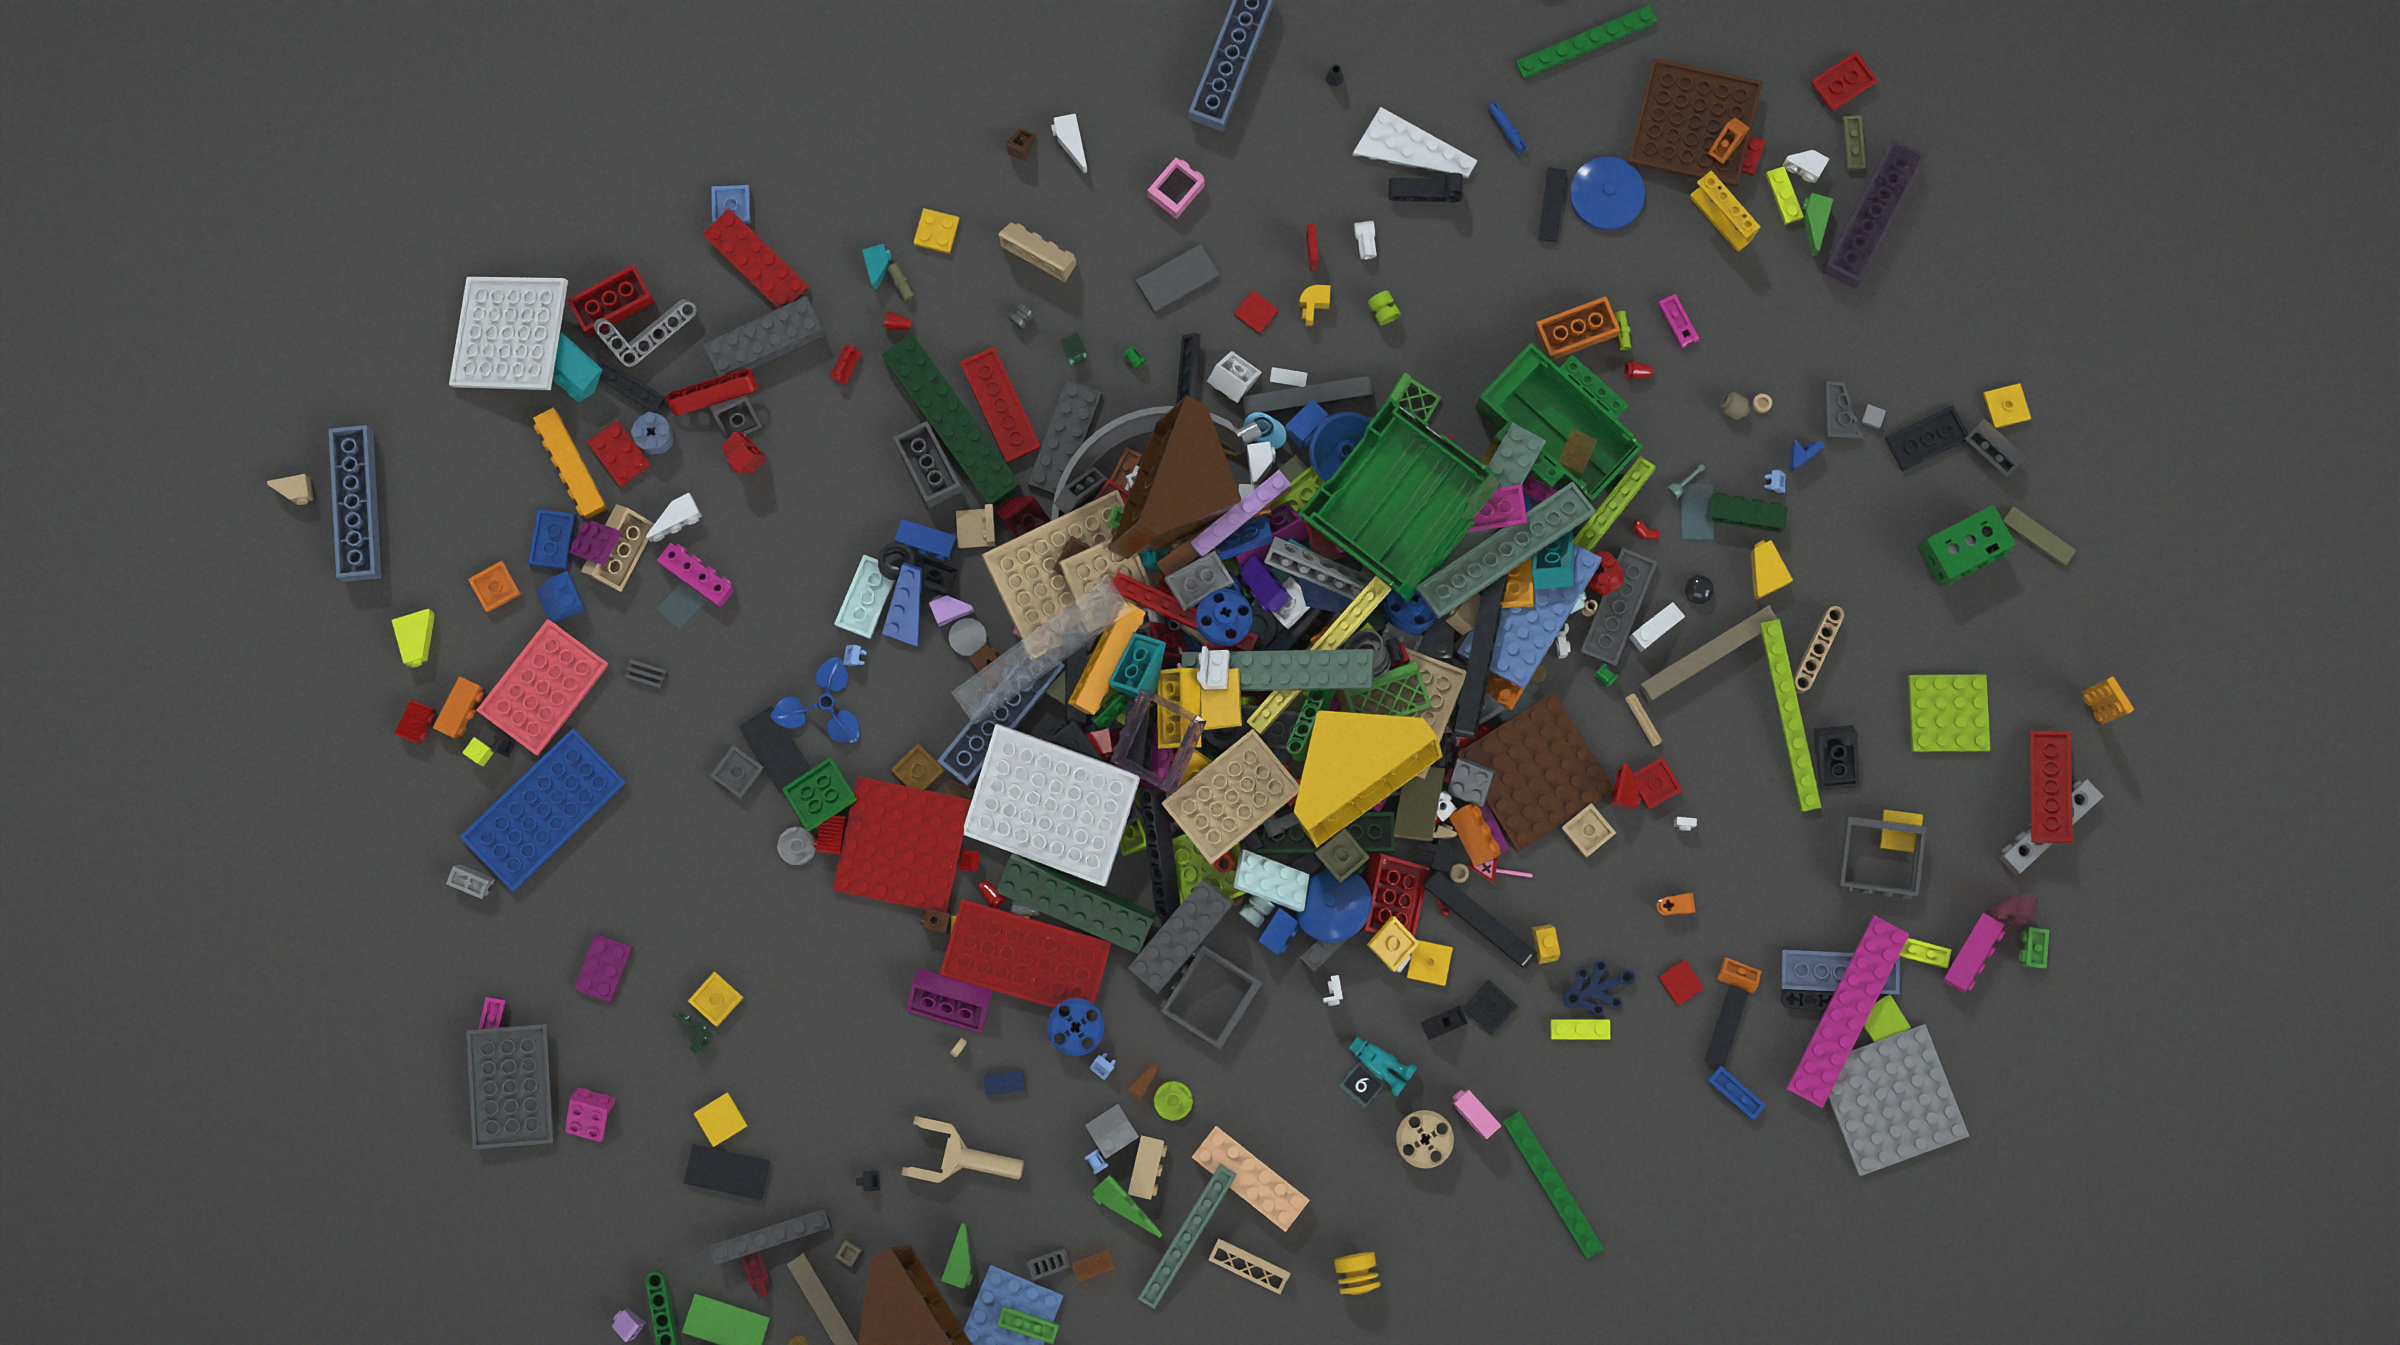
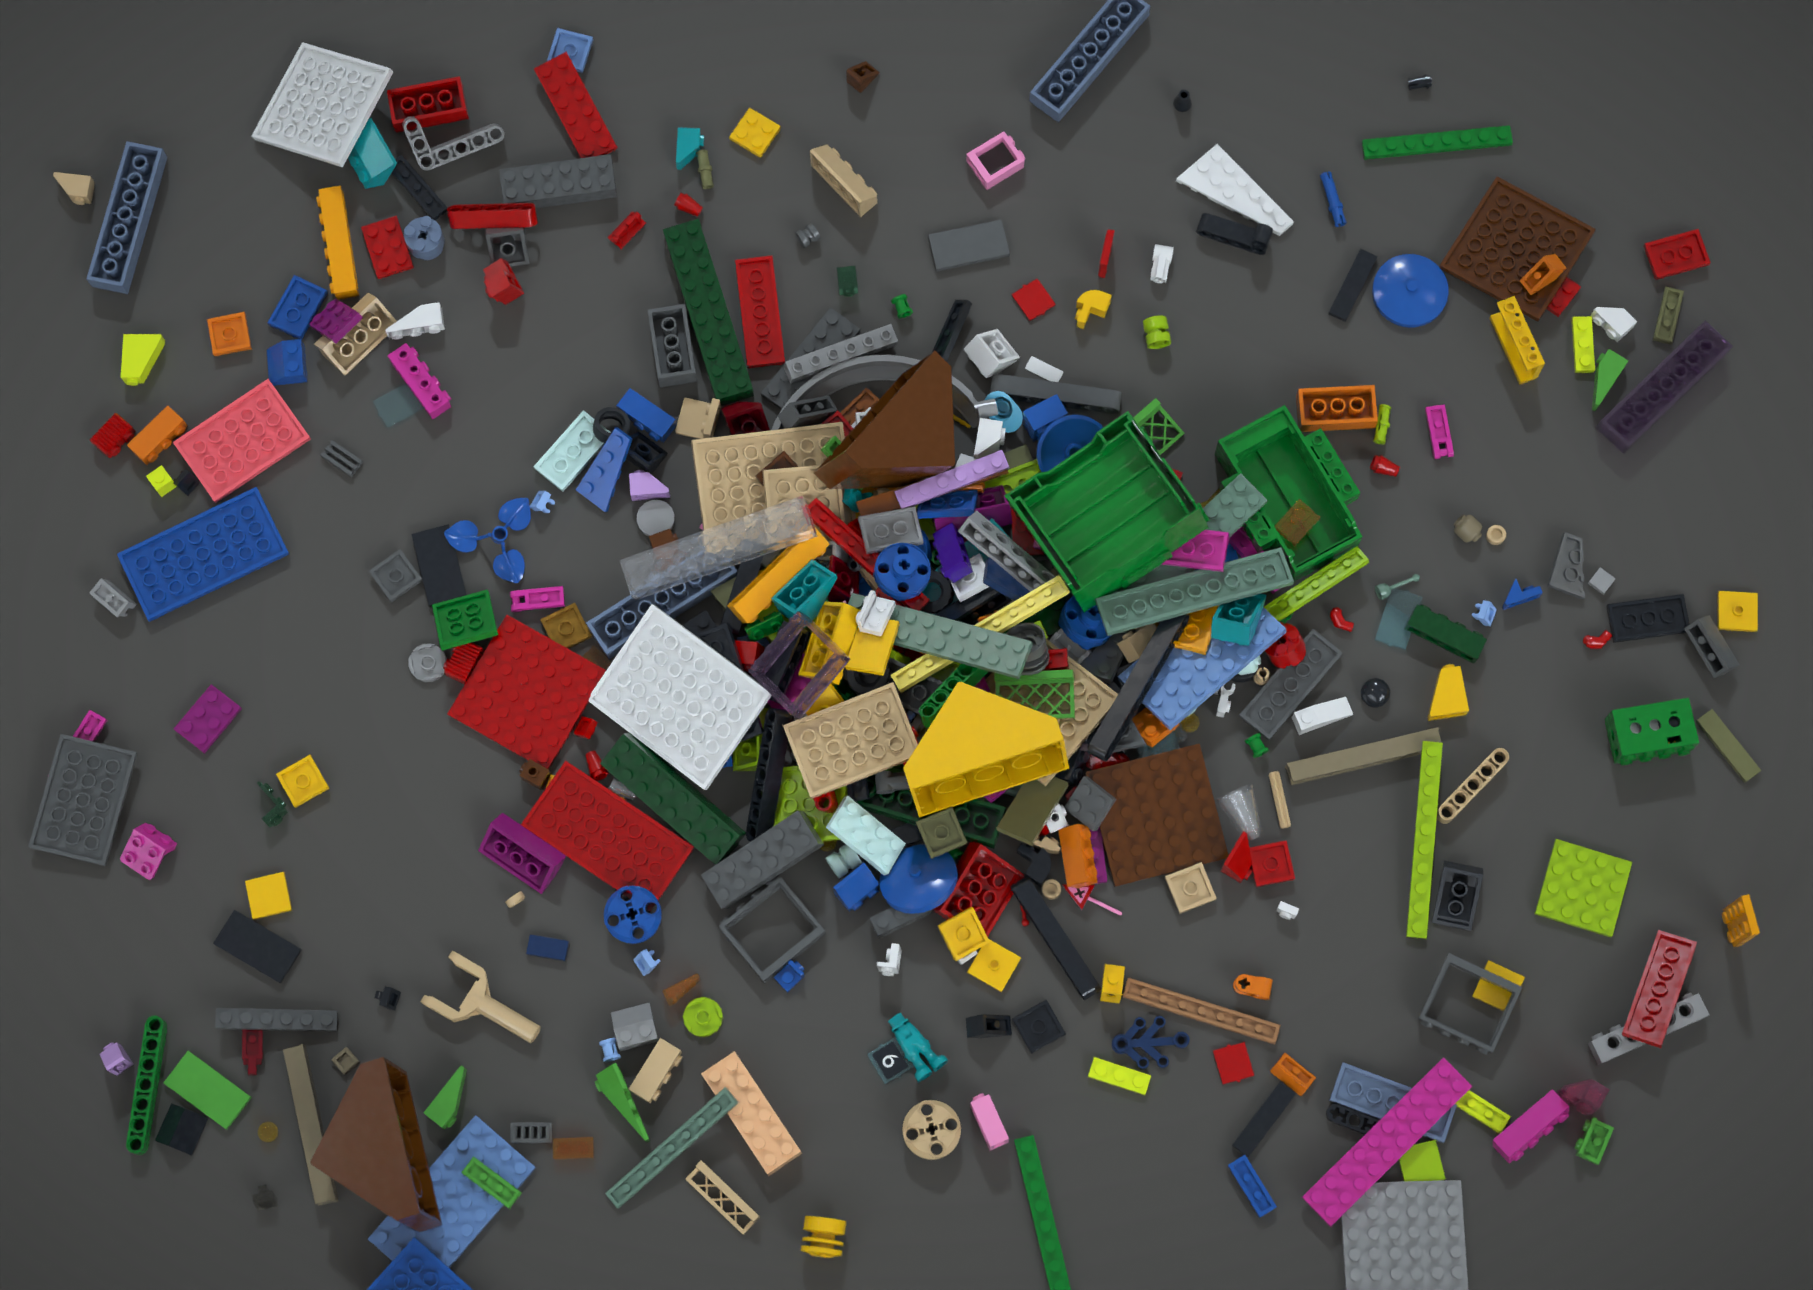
camera: 20 degrees right, 5 degrees down
(881, 750) = (537, 598): none -> dark pink plate
(1069, 138) = (909, 82): white slope -> none
(1091, 422) = (857, 346): none -> light grey brick
(1242, 1035) = (790, 975): none -> blue bracket
(1394, 649) = (1055, 652): black pin -> none
(1613, 741) = (1242, 810): none -> clear cone
(1636, 943) = (1201, 1011): none -> medium nougat tile
(1888, 476) = (1597, 642): none -> red arm

